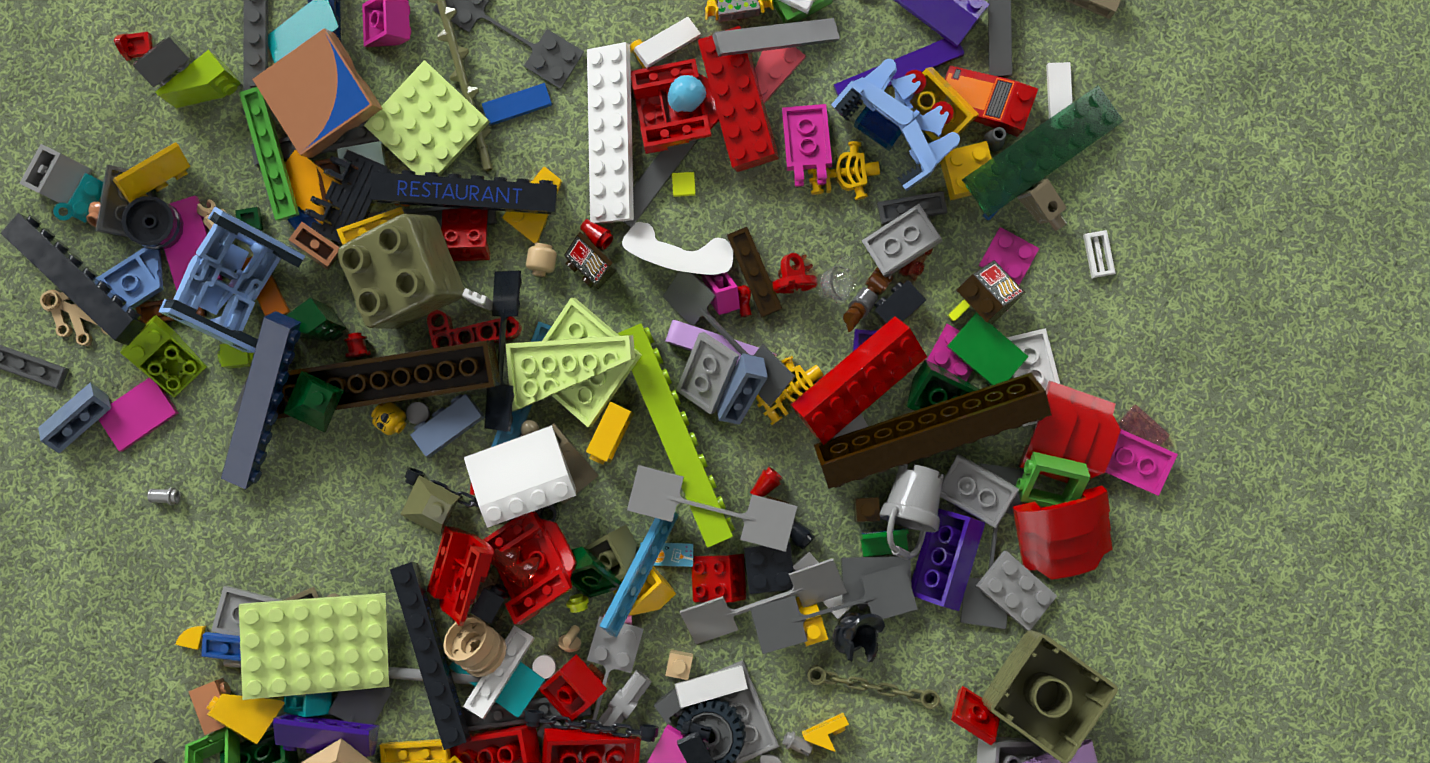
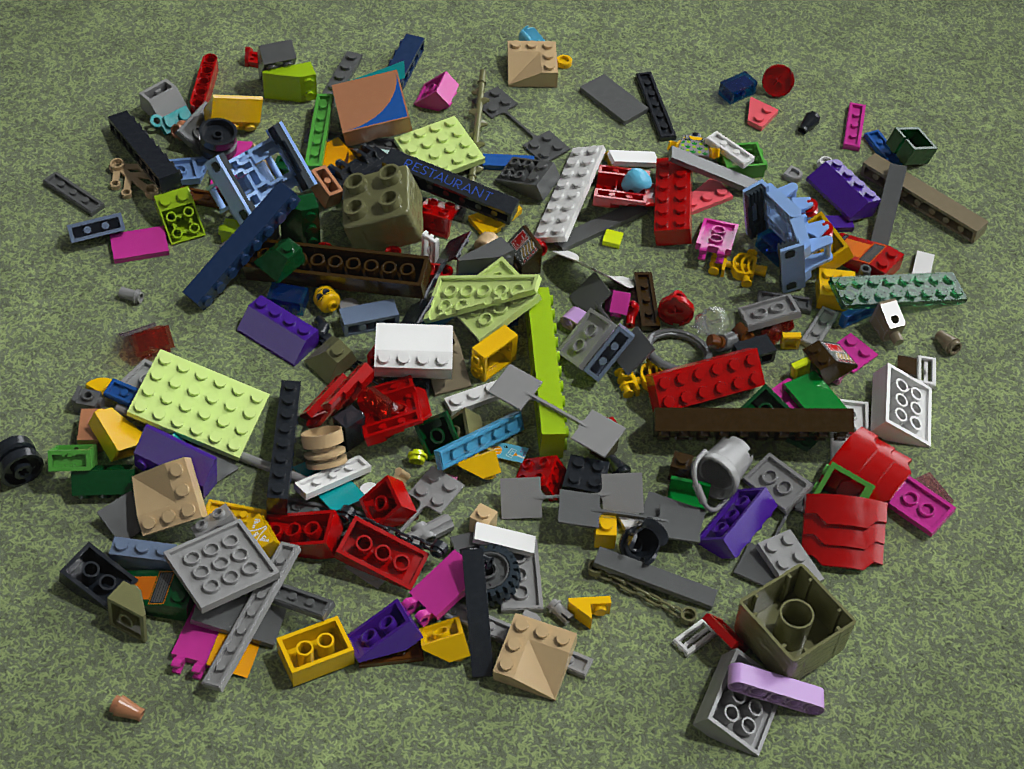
camera: 10 degrees right, 35 degrees down
(86, 115) = (204, 82): none -> red beam
(180, 670) = (87, 399): none -> dark grey brick
(195, 549) = (137, 329): none -> piece
(217, 556) = (151, 341): none -> clear red slope
(345, 434) = (289, 297): none -> clear blue brick
(353, 486) = (278, 330): none -> dark purple slope
(402, 458) = (322, 326): none -> black arm
(551, 126) = (529, 177): none -> dark grey slope
(553, 295) = (484, 256): none -> dark grey slope
(614, 485) = (470, 398): none -> white plate
(786, 317) = (676, 333): none -> dark grey wedge
(883, 667) = (655, 578): none -> dark grey tile
(926, 731) = (689, 651): none -> white tile
(936, 271) = (790, 340): none -> yellow tile
(963, 233) = (820, 326): none -> light grey tile
(1076, 265) = (906, 364): none -> dark brown brick
(1084, 324) = (901, 407): none -> white slope
(1115, 200) = (948, 342): none -> dark tan cone

